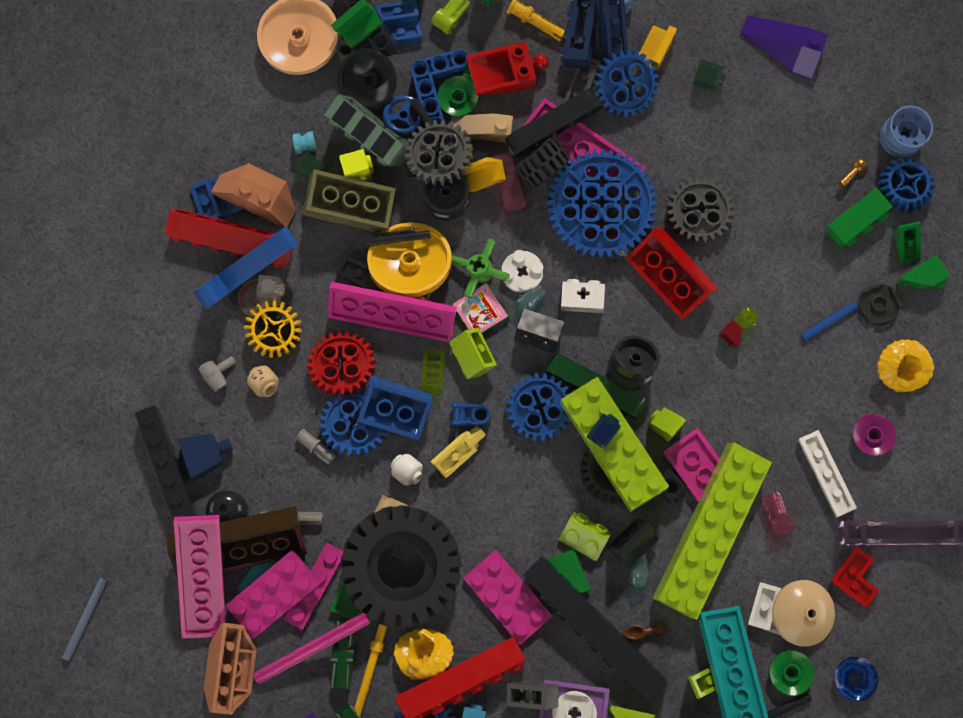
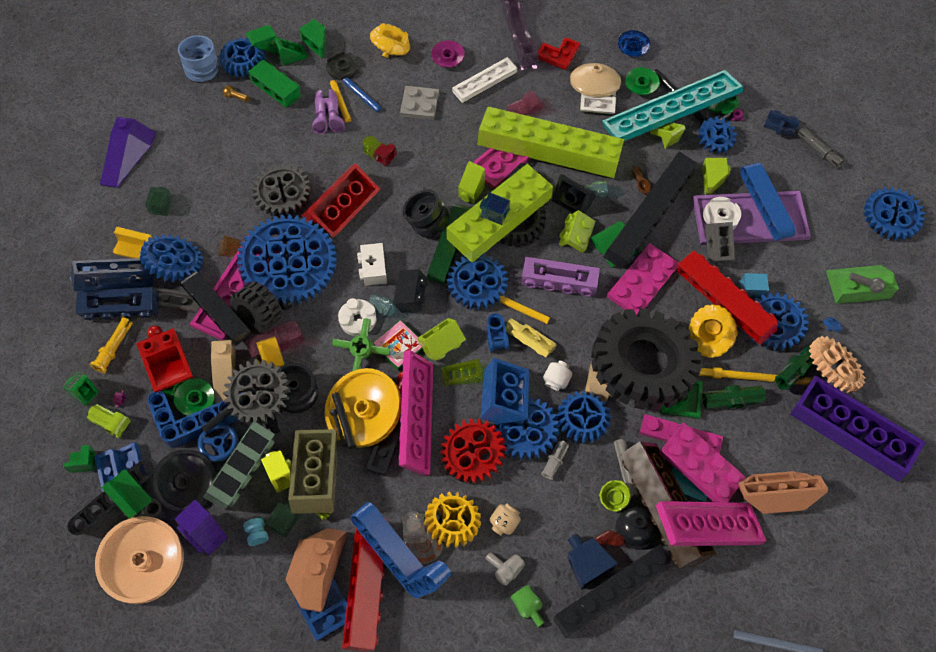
camera: 105 degrees left, 15 degrees down
(177, 387) = (528, 604): none -> bright green piece
(223, 481) = (610, 537): none -> clear red arm
(261, 503) = (615, 495): none -> lime hair
(309, 87) = (200, 528): none -> dark purple wedge
(311, 648) = (739, 421): dark pink axle -> none
(352, 496) = (600, 415): none -> blue gear
(474, 24) = (119, 398): none -> magenta piece
(497, 453) = (523, 309): none -> yellow bar
(514, 533) = (560, 277): none -> medium lavender brick
(637, 147) = (229, 246): none -> clear orange slope
(789, 280) = (319, 125): none -> medium lavender piece
(806, 388) = (419, 102): none -> light grey plate
(823, 294) = (341, 103): none -> yellow bar
(924, 208) = (263, 38): none -> green slope

